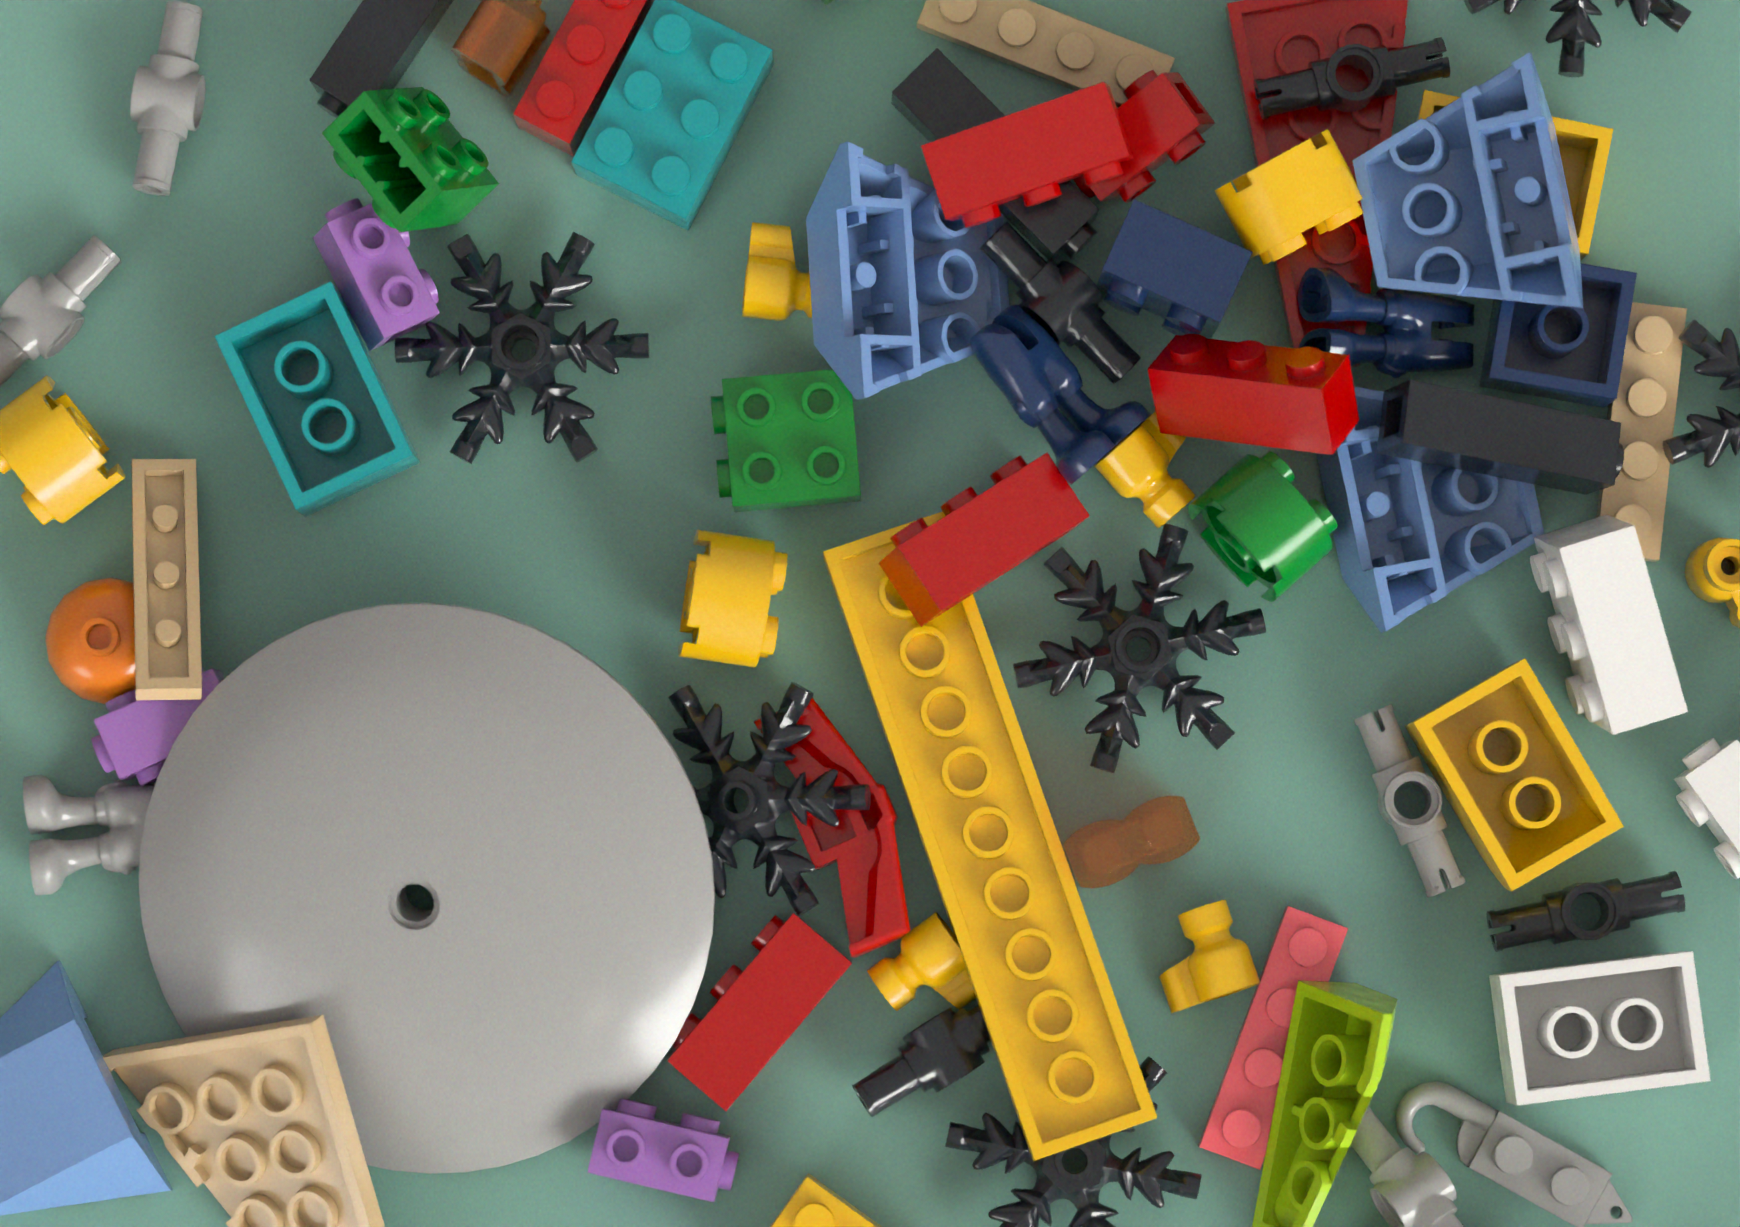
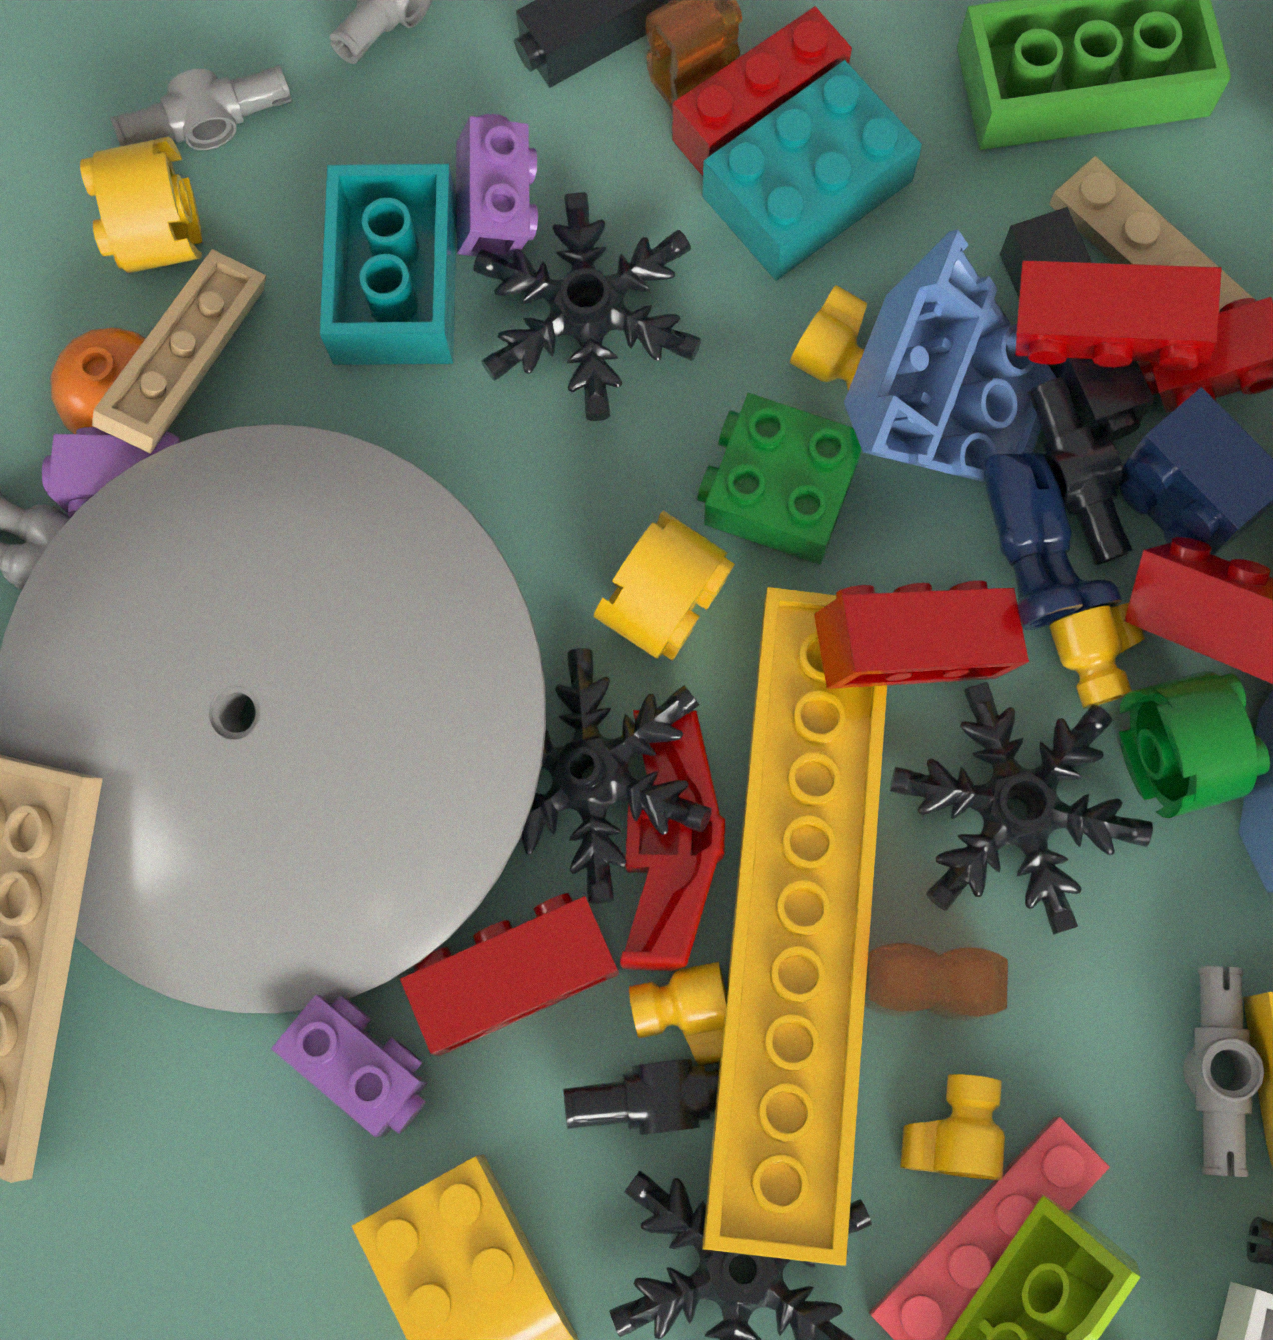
camera: 30 degrees right, 10 degrees down
(410, 158) = (567, 100): green brick -> none

